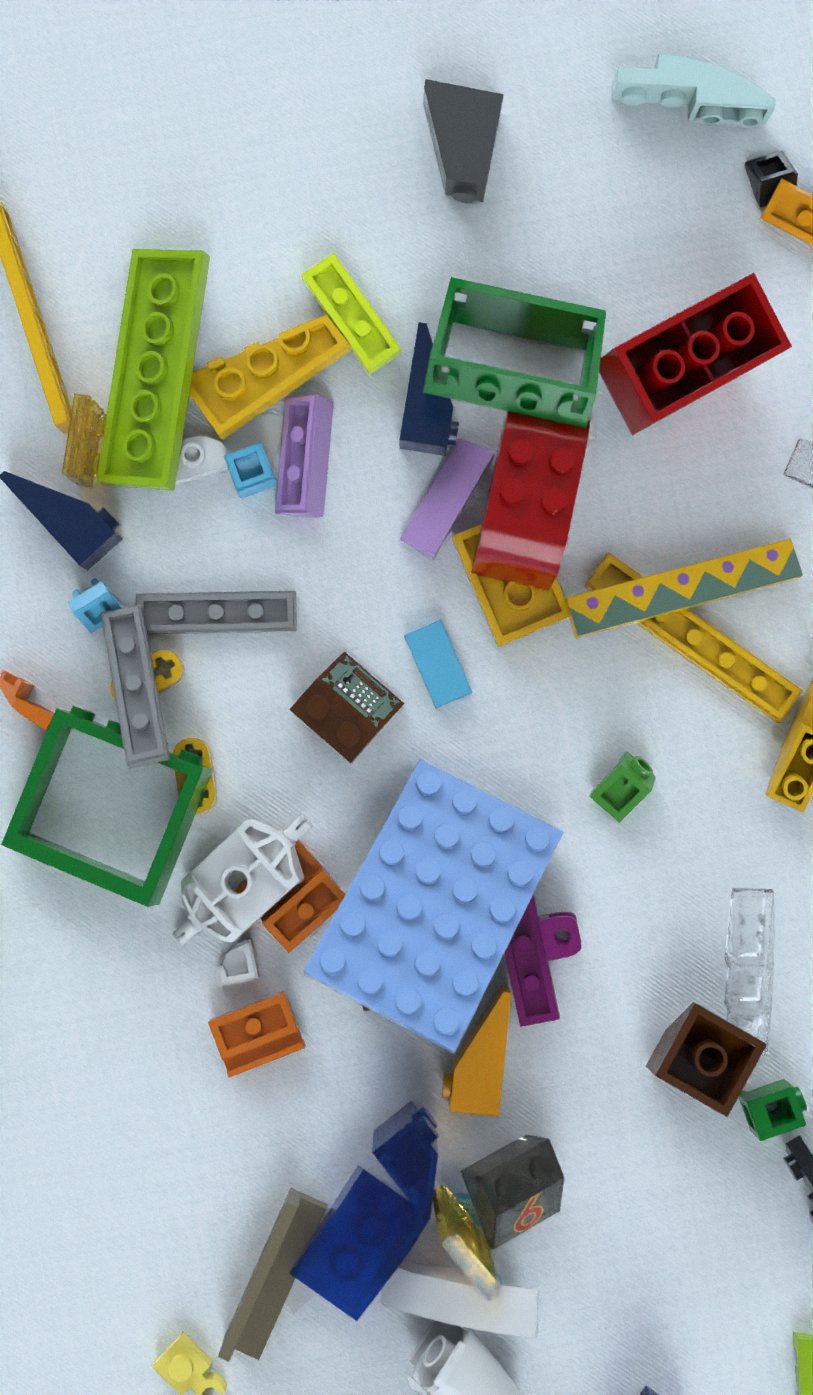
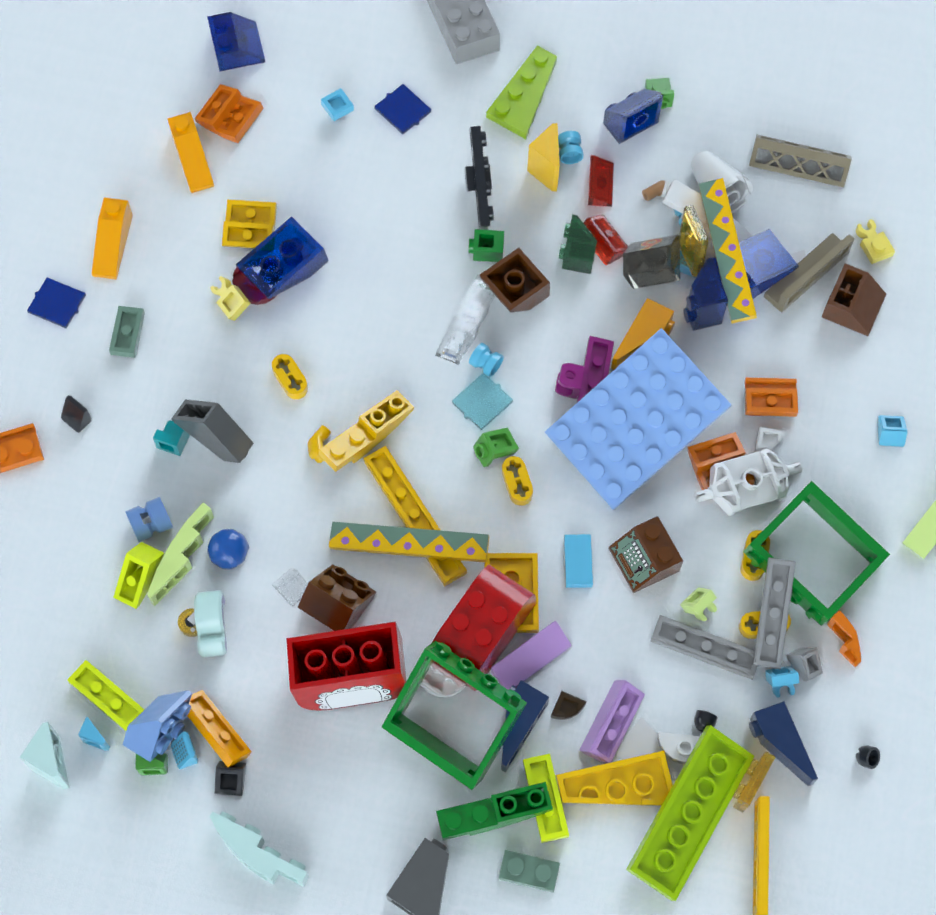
camera: 150 degrees left, 20 degrees down
(63, 1056) = (892, 430): none -> medium azure slope
(72, 643) = (806, 662): none -> light grey slope
(179, 504) = (704, 719): none -> black hinge
(185, 1250) = (855, 300): none -> reddish brown slope
(247, 668) = (698, 601): none -> yellowish green tile
(250, 470) = (651, 722): medium azure slope -> none
(335, 216) = (529, 871): none -> sand green plate
(371, 452) = (567, 706): none -> dark brown tile
(407, 1247) = (727, 250): none -> tile
(411, 264) = (494, 812): none -> green slope
(553, 1326) = (657, 189): none -> medium nougat arm
(578, 741) = (512, 482): none -> yellow beam
(603, 1201) = (609, 243): none -> clear red slope
(633, 1166) = (580, 247): none -> clear green slope
(647, 1300) = (600, 182): none -> clear red slope
(672, 853) = (482, 401): none -> clear light blue piece
(695, 917) = (485, 359): none -> medium azure wheel
(723, 1348) = (570, 151): none -> medium azure wheel
(745, 467) = (336, 598): none -> reddish brown slope
(754, 1304) = (544, 157): none -> yellow slope

